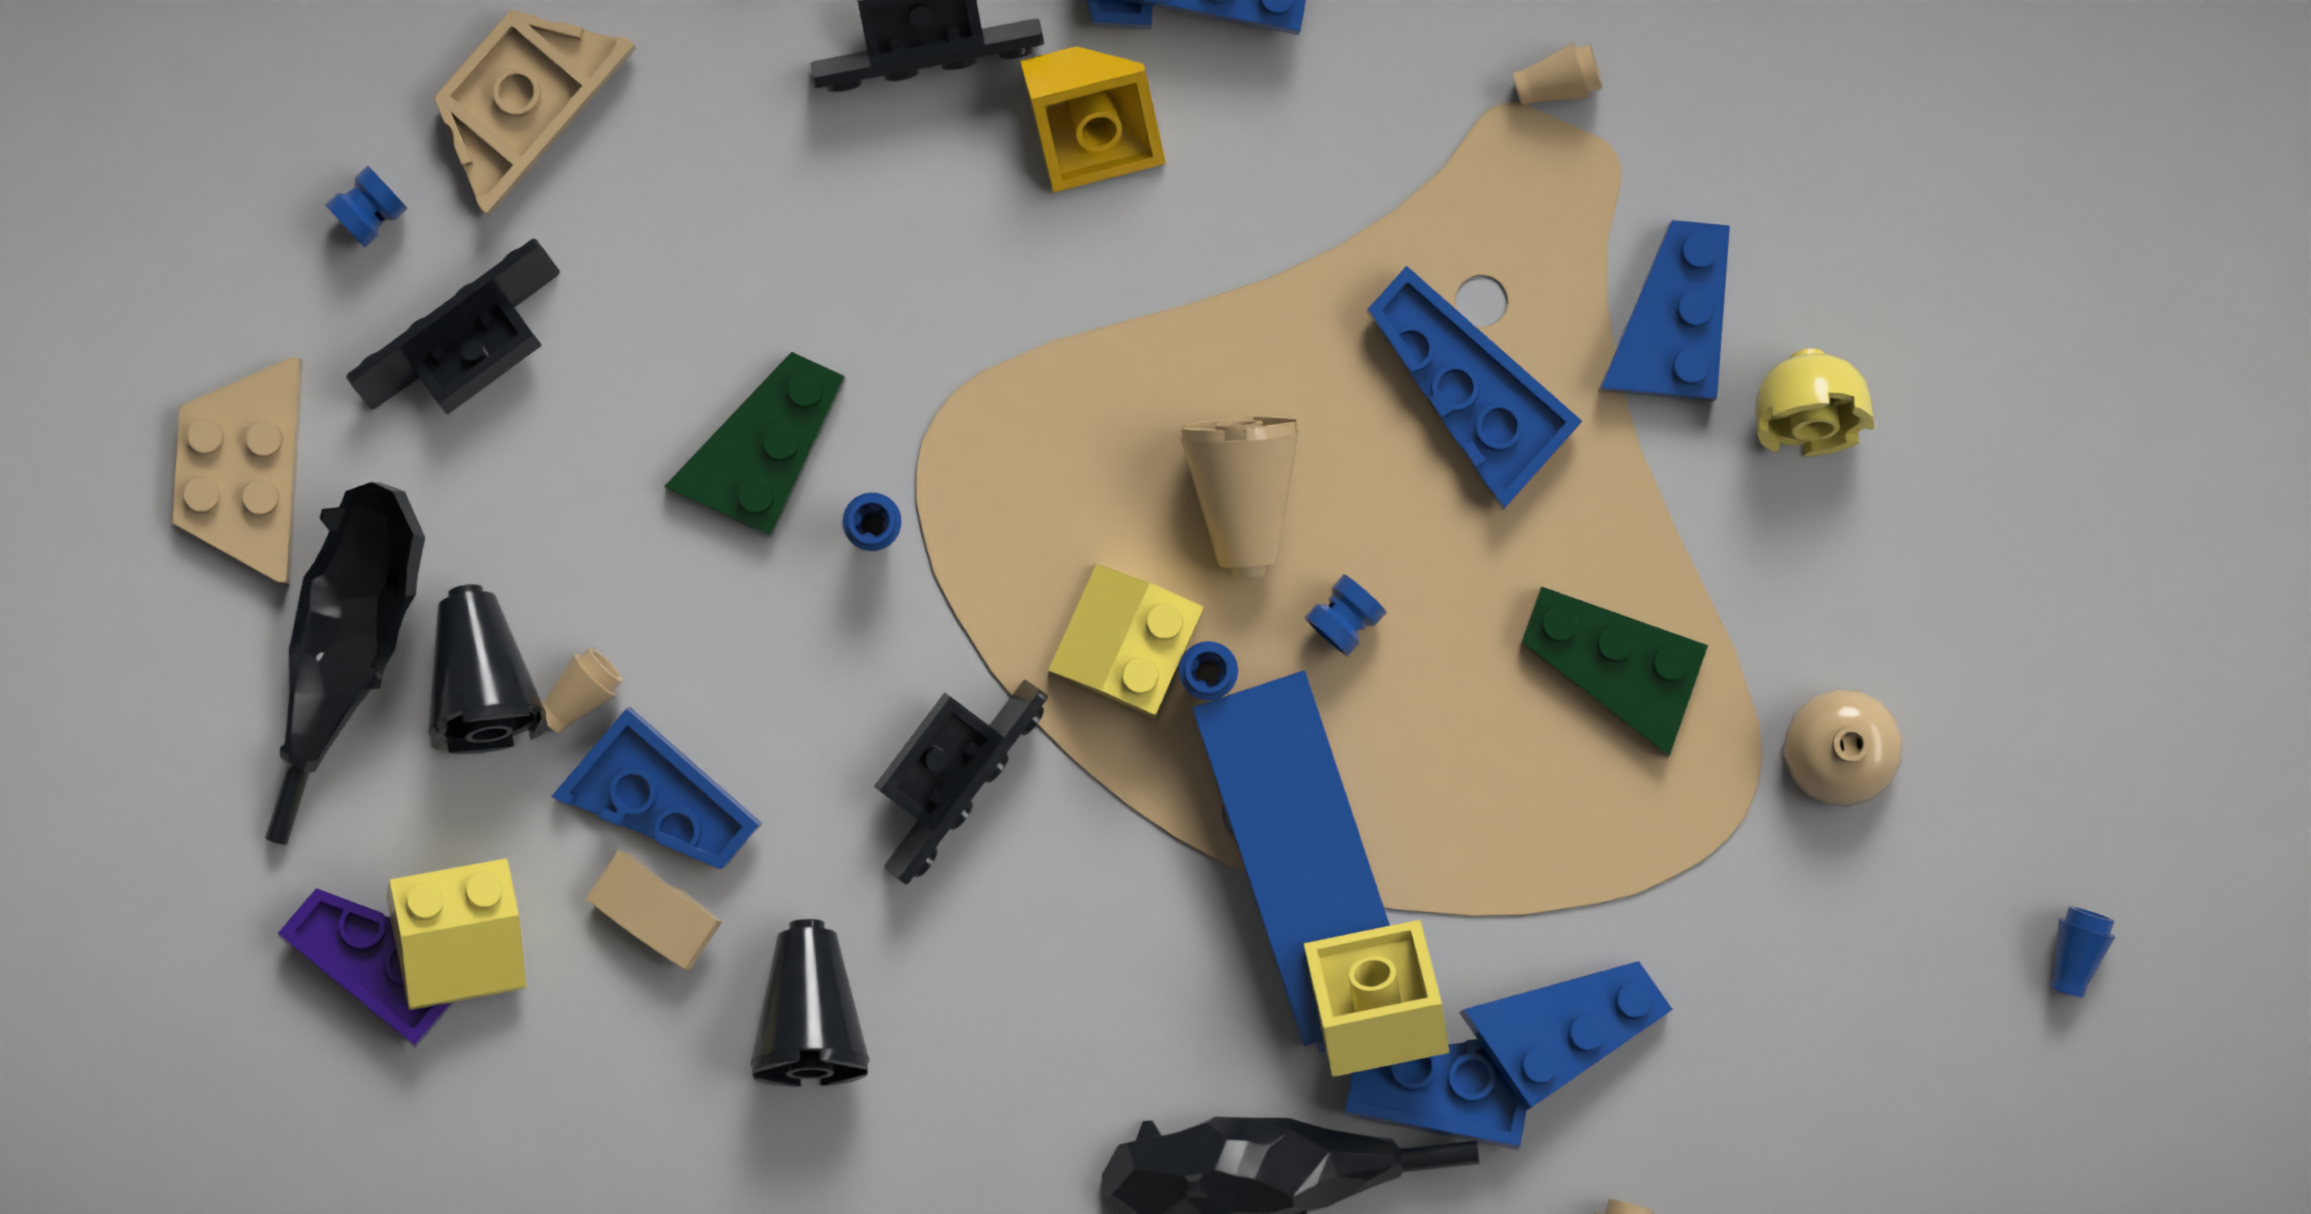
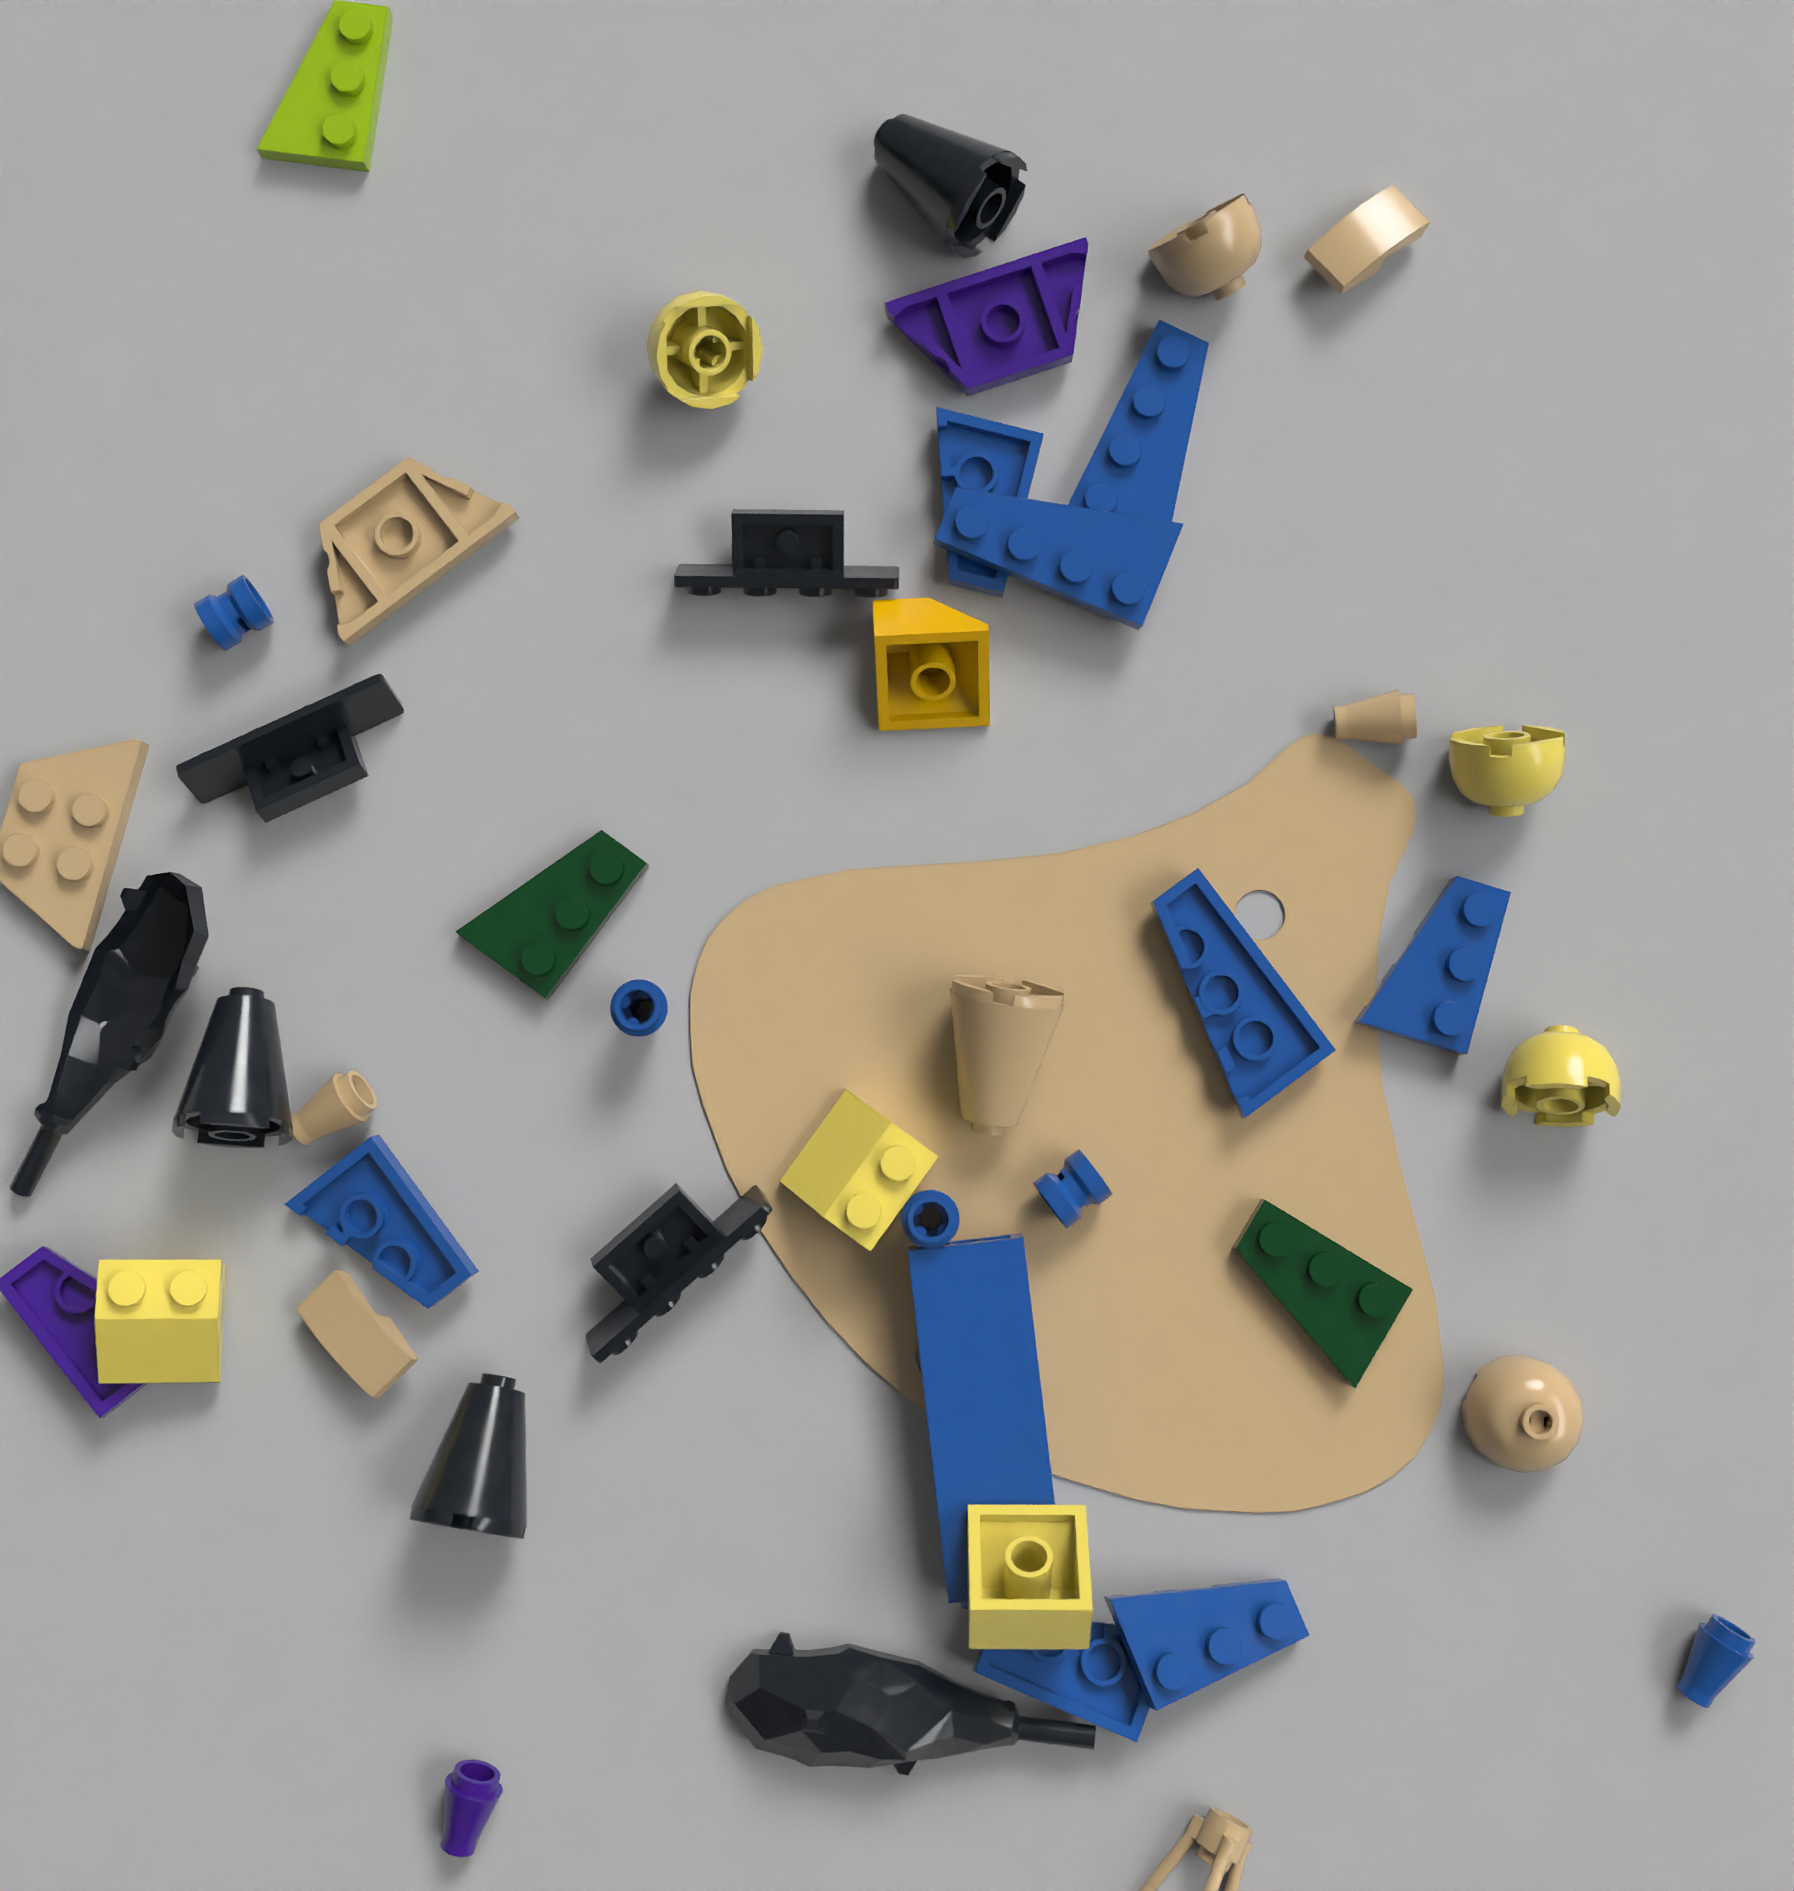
camera: 15 degrees right, 0 degrees up
(1697, 99) = (1507, 766): none -> light yellow cylinder

